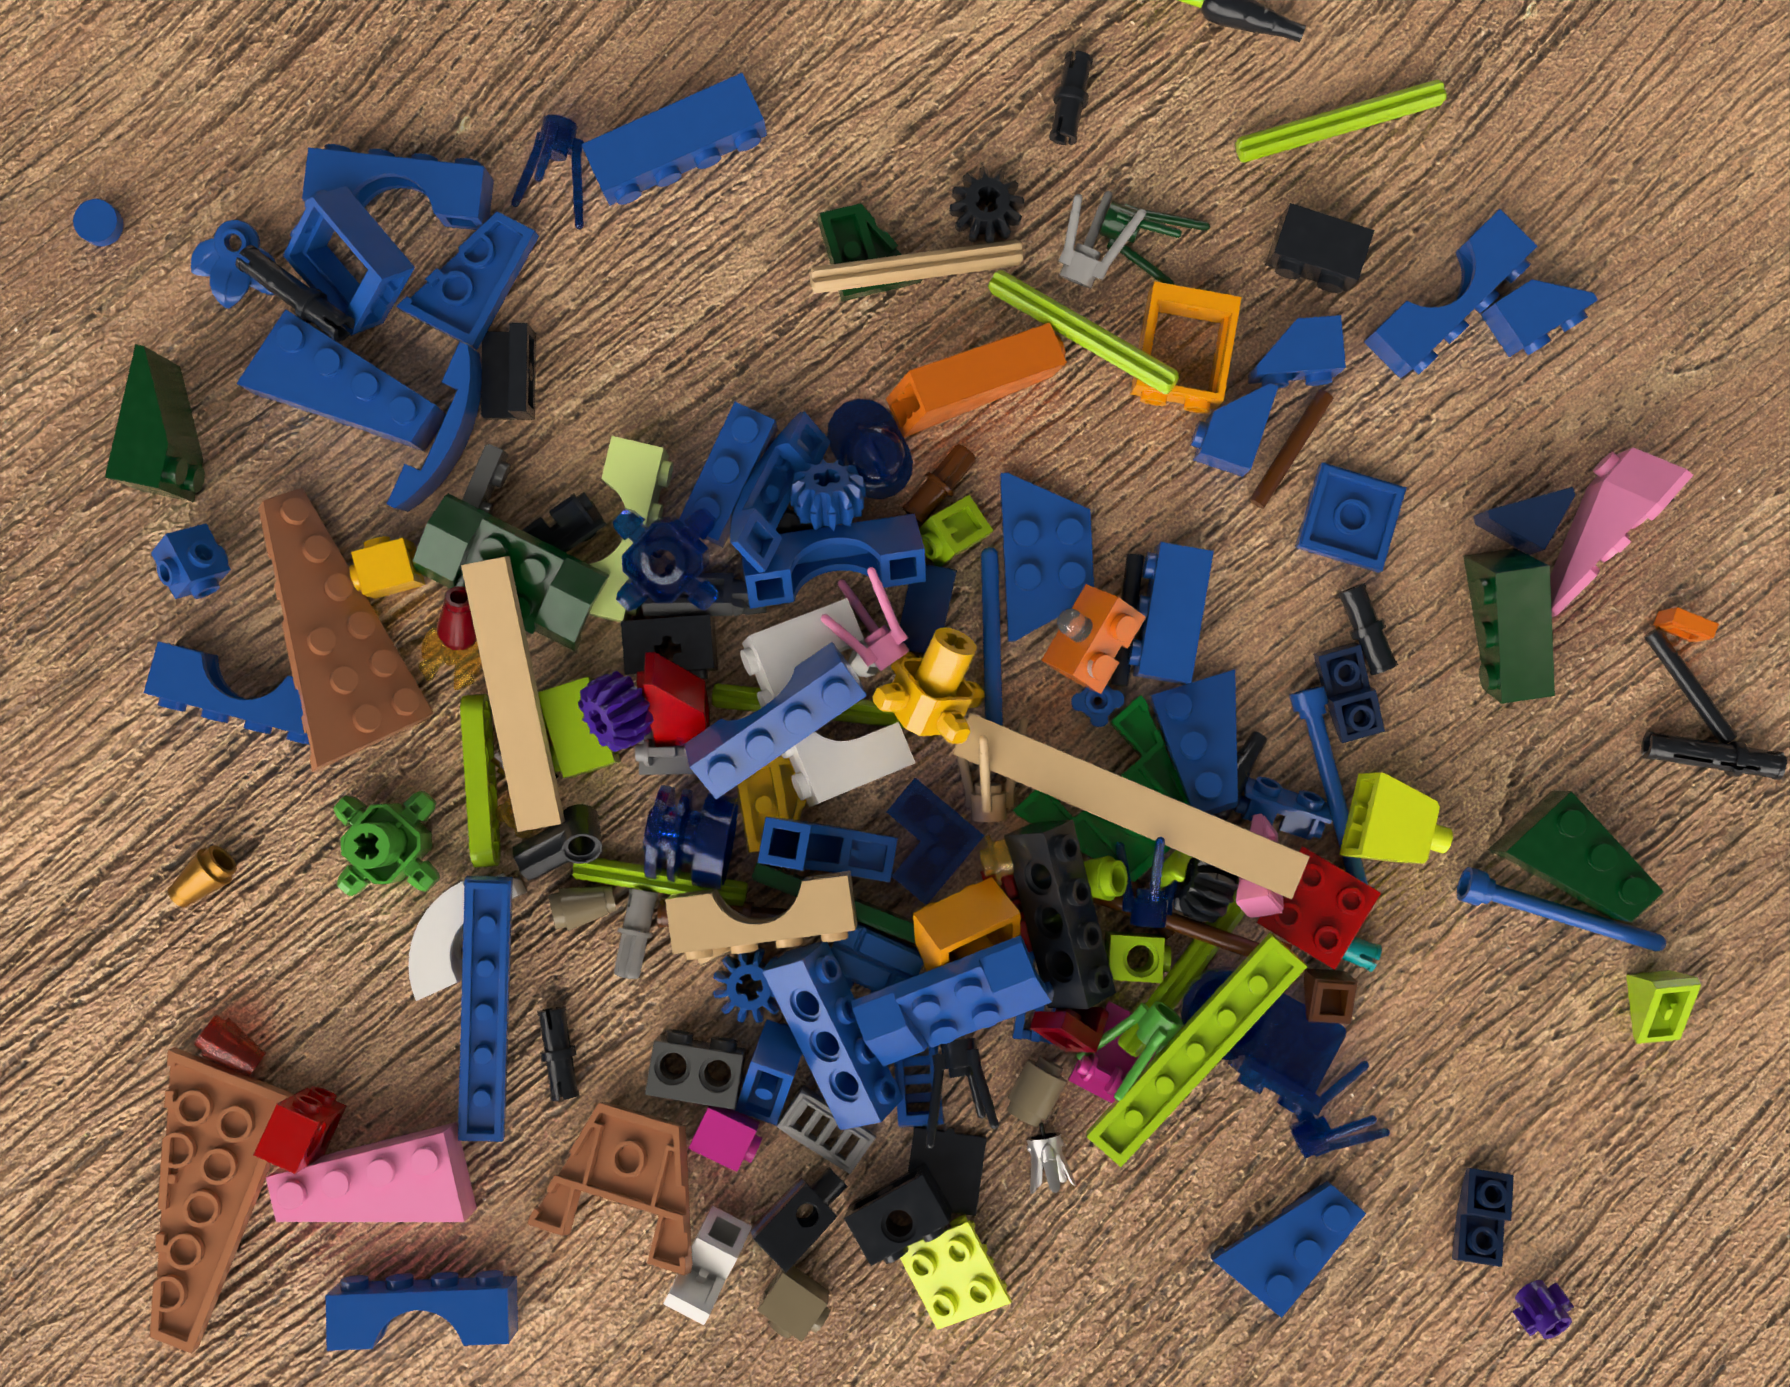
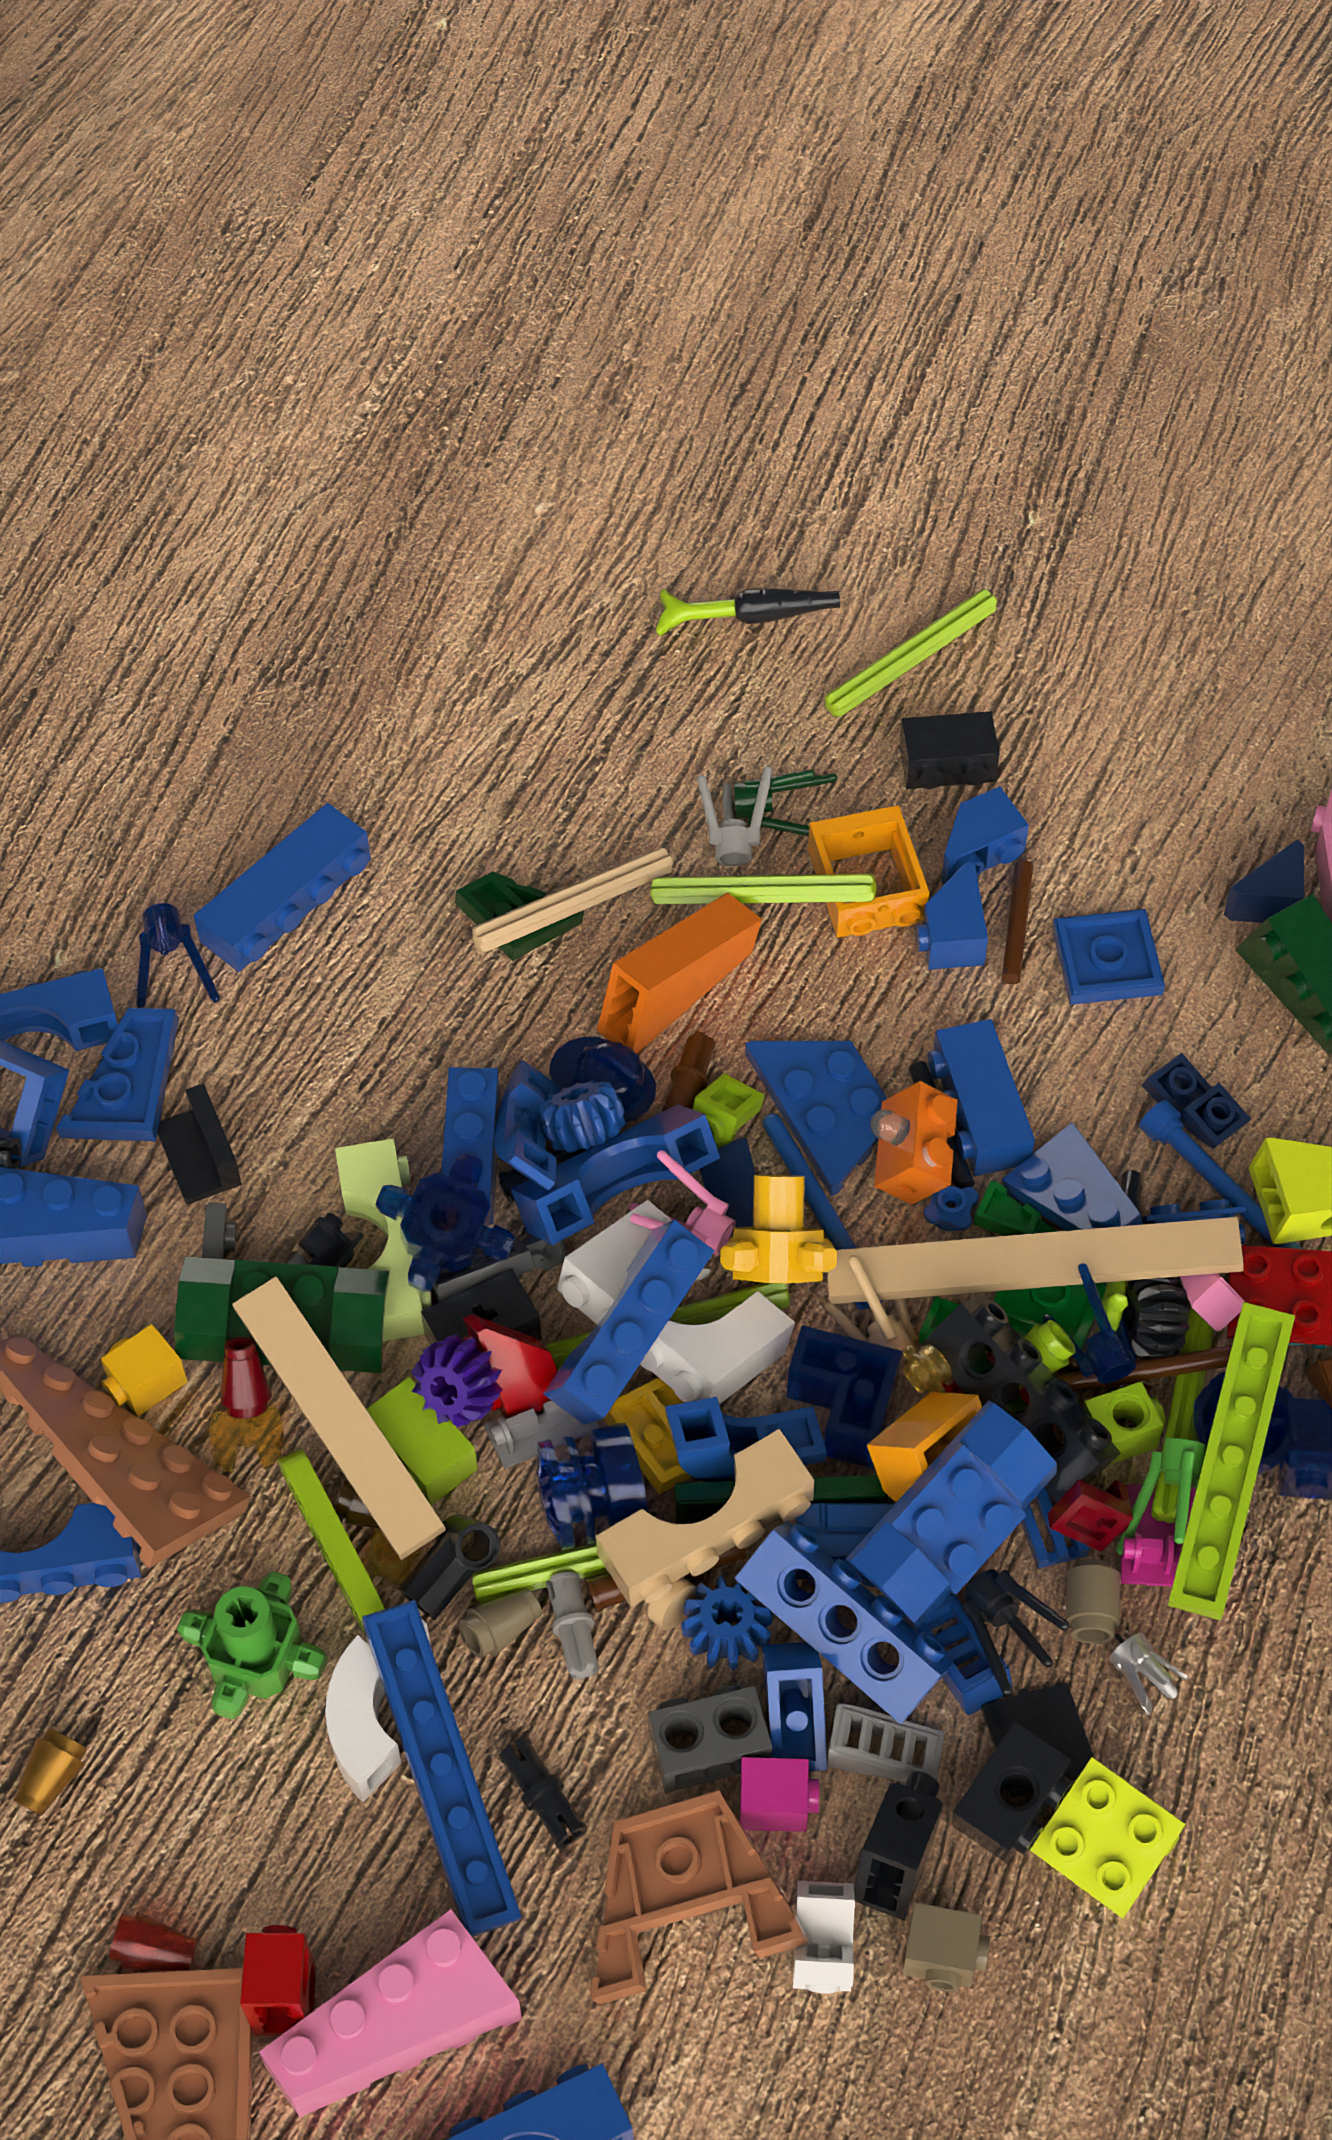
camera: 20 degrees left, 30 degrees down
(465, 377) = (148, 1272): blue slope -> none
(987, 189) = (615, 830): black gear -> none
(1071, 98) = (651, 721): black pin -> none
(1368, 629) = (1180, 1038): black pin -> none
(1485, 259) = (1077, 780): blue arch -> none
(1533, 311) = (1177, 726): blue slope -> none

